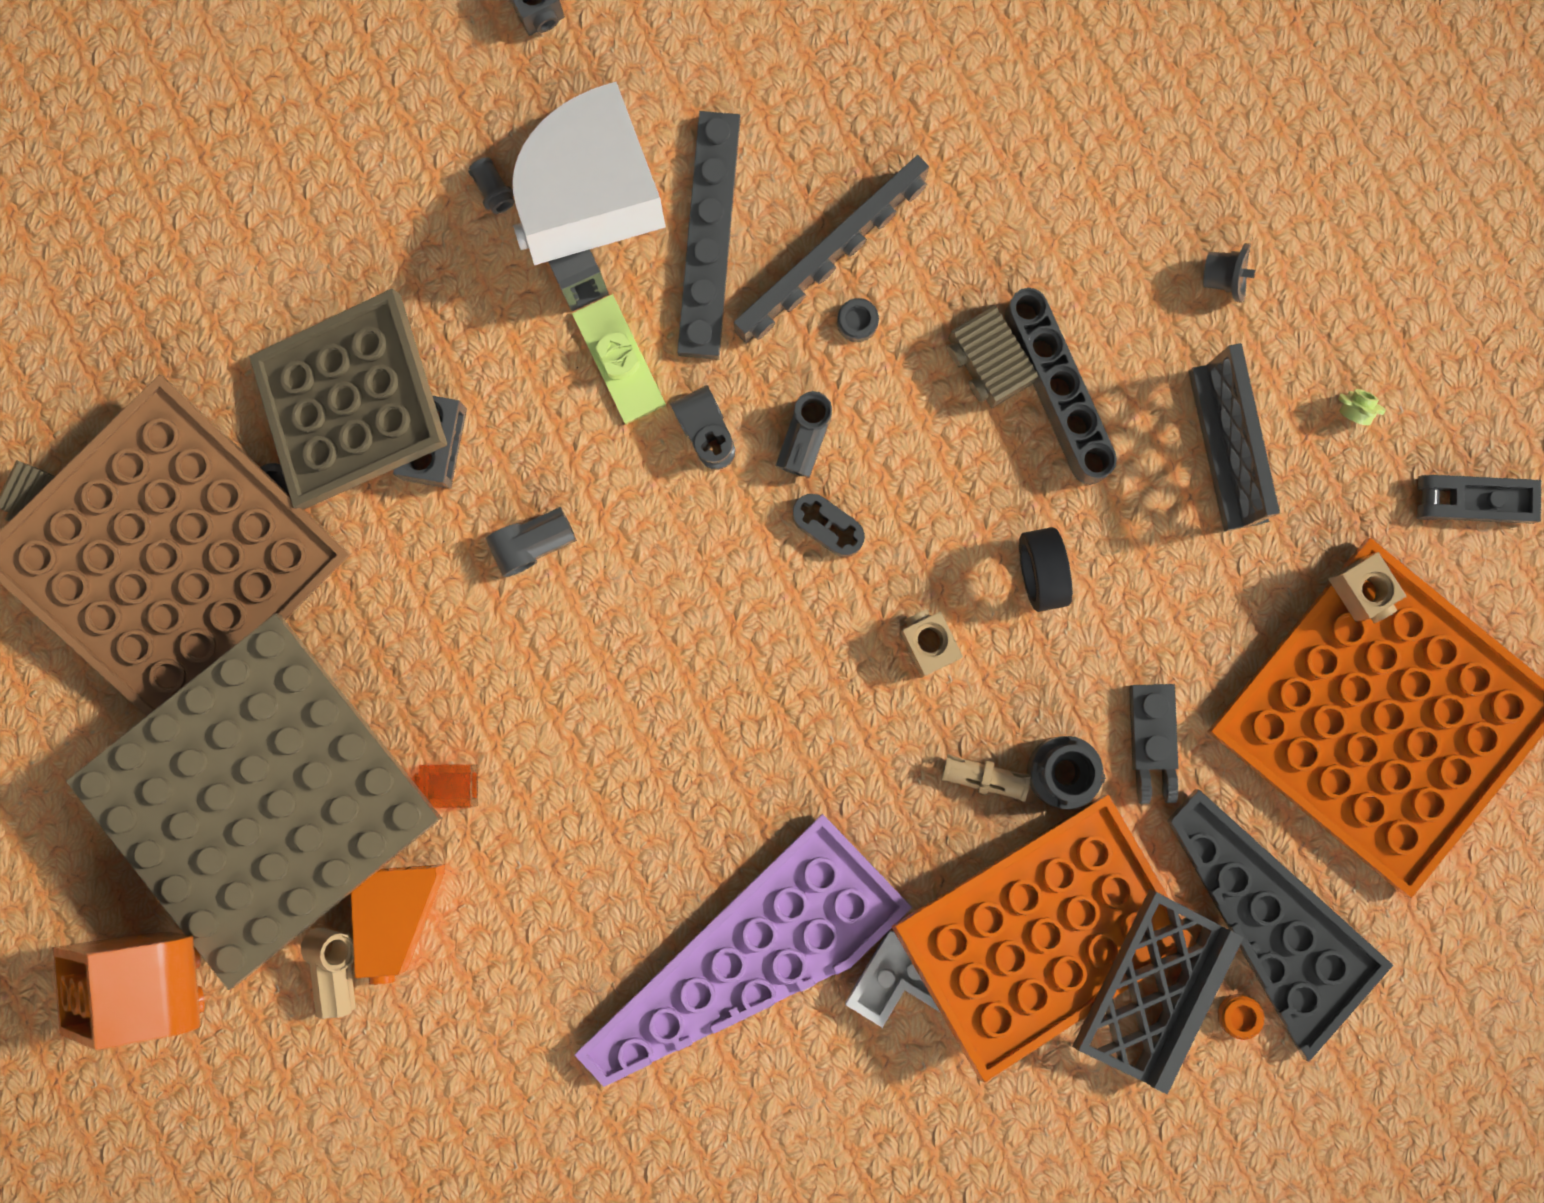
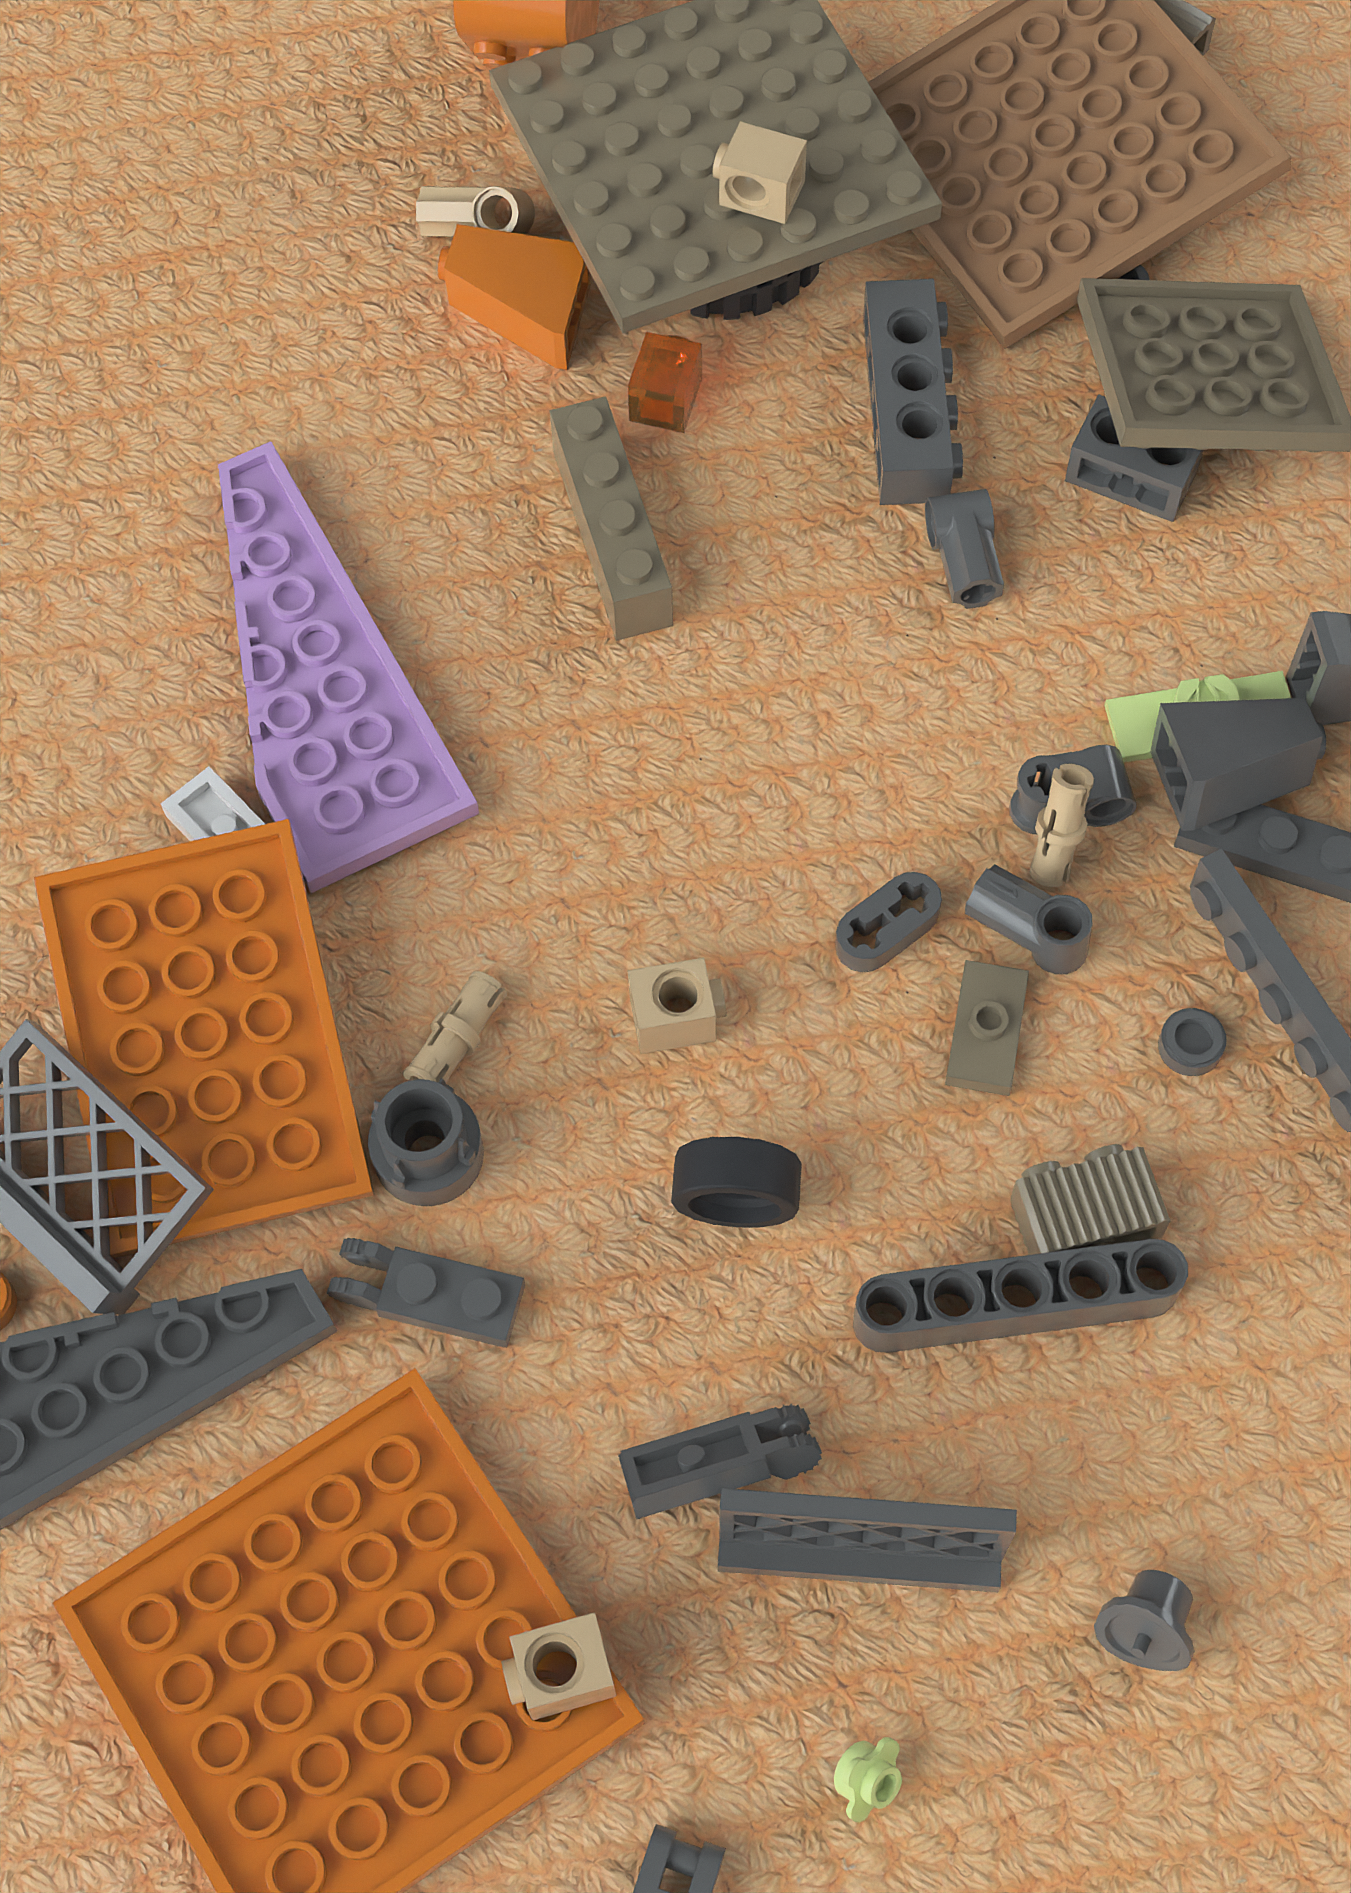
camera: 105 degrees right, 20 degrees down
(295, 748) = (760, 172): none -> tan brick
(345, 619) = (909, 391): none -> dark grey brick
(574, 790) = (611, 518): none -> dark tan brick
(659, 329) = (1233, 754): none -> dark grey slope
(745, 425) = (1061, 825): none -> tan pin
(884, 446) = (987, 1028): none -> dark tan plate
(1211, 540) = (717, 1457): none -> dark grey hinge

